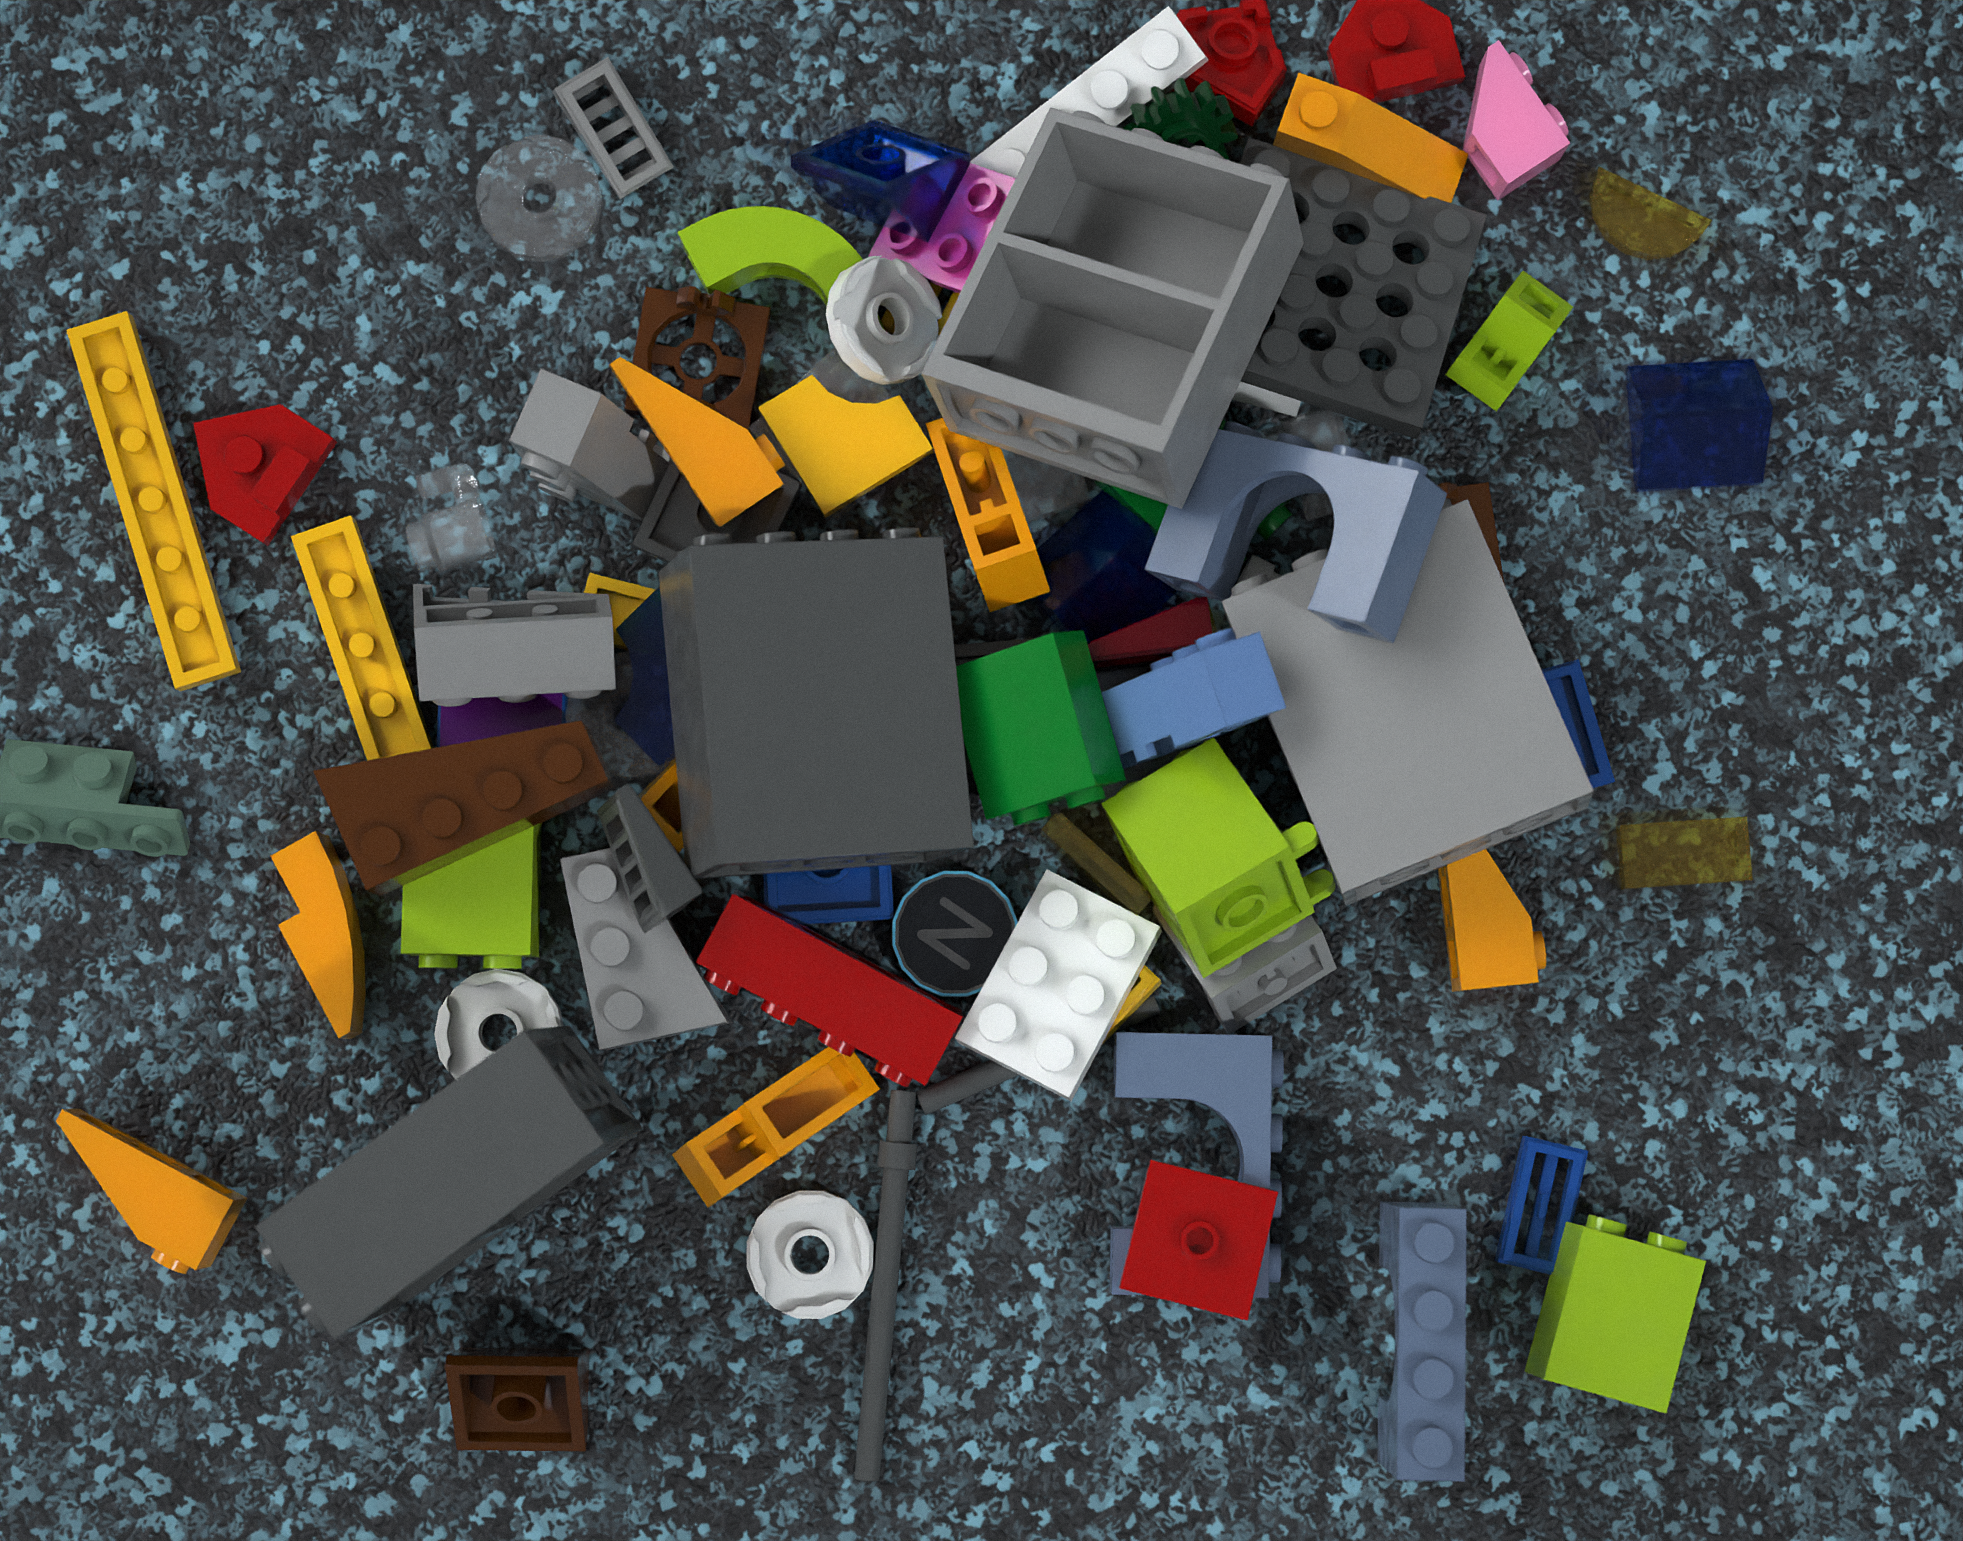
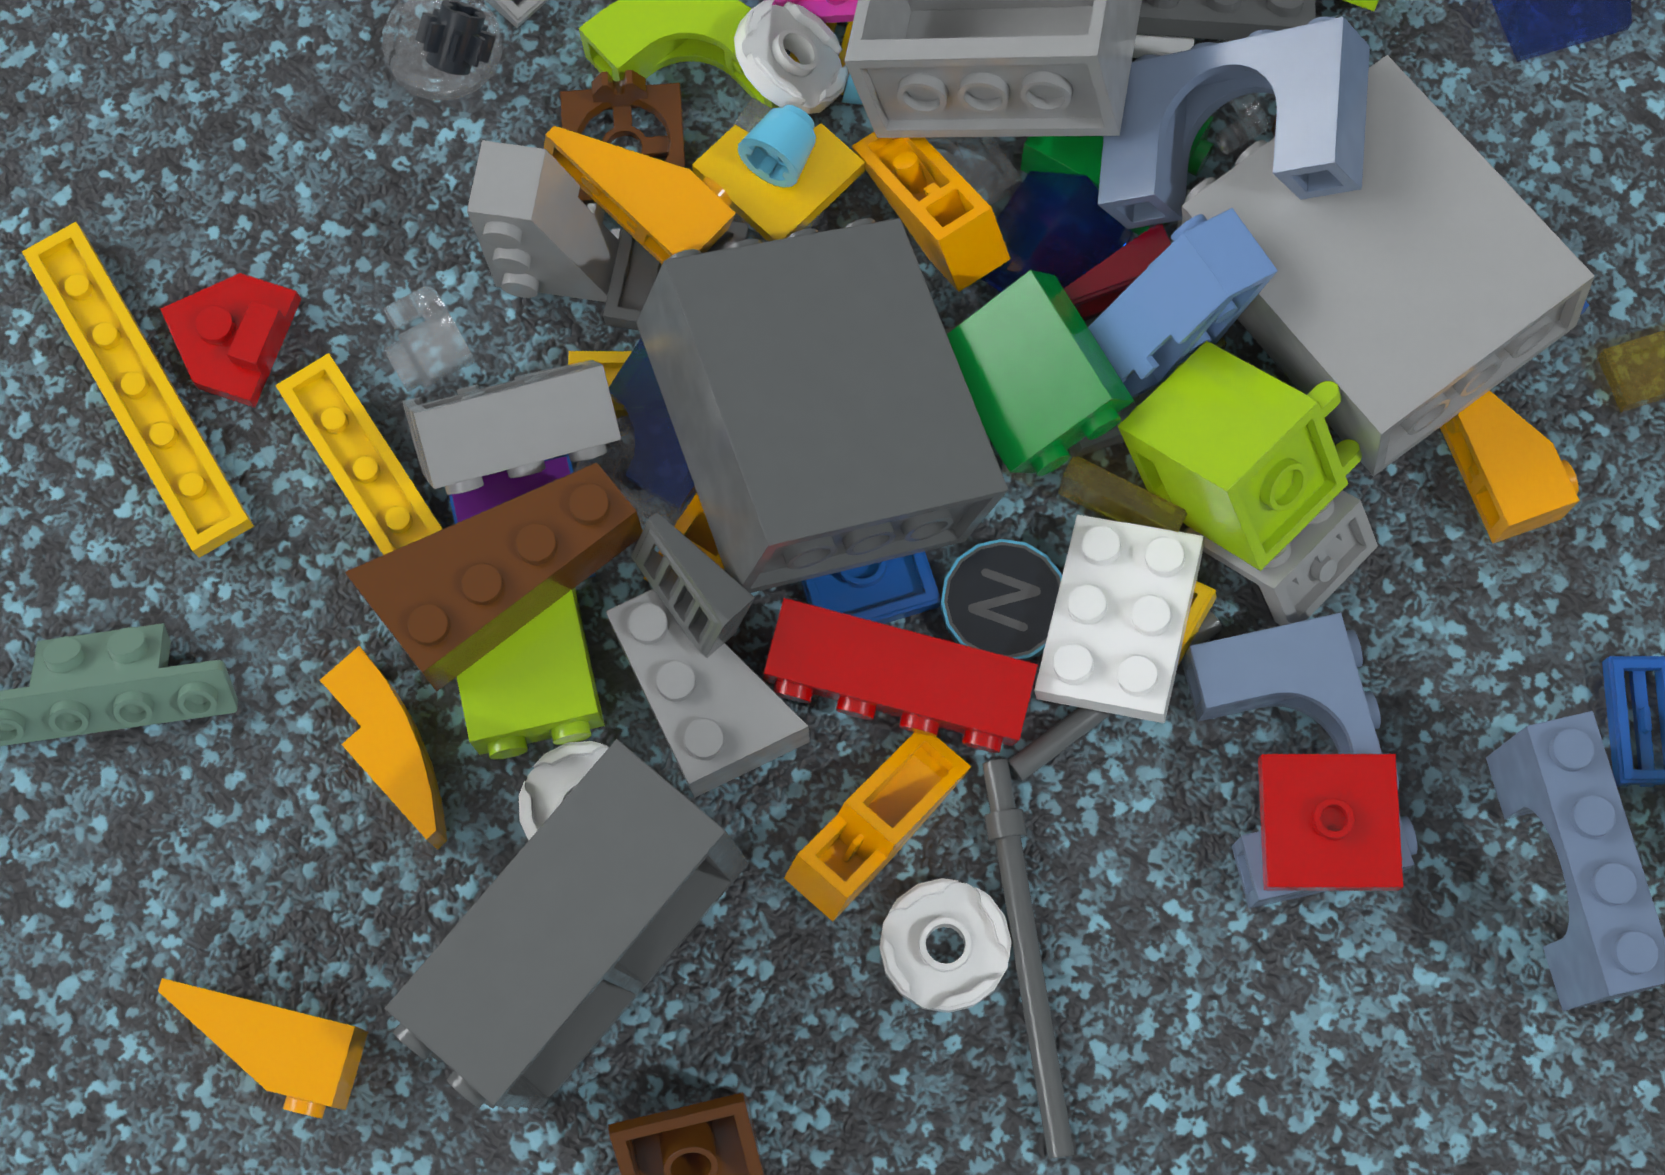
camera: 10 degrees left, 10 degrees down
(549, 211) = (455, 37): none -> black gear
(848, 416) = (779, 145): none -> medium azure hat

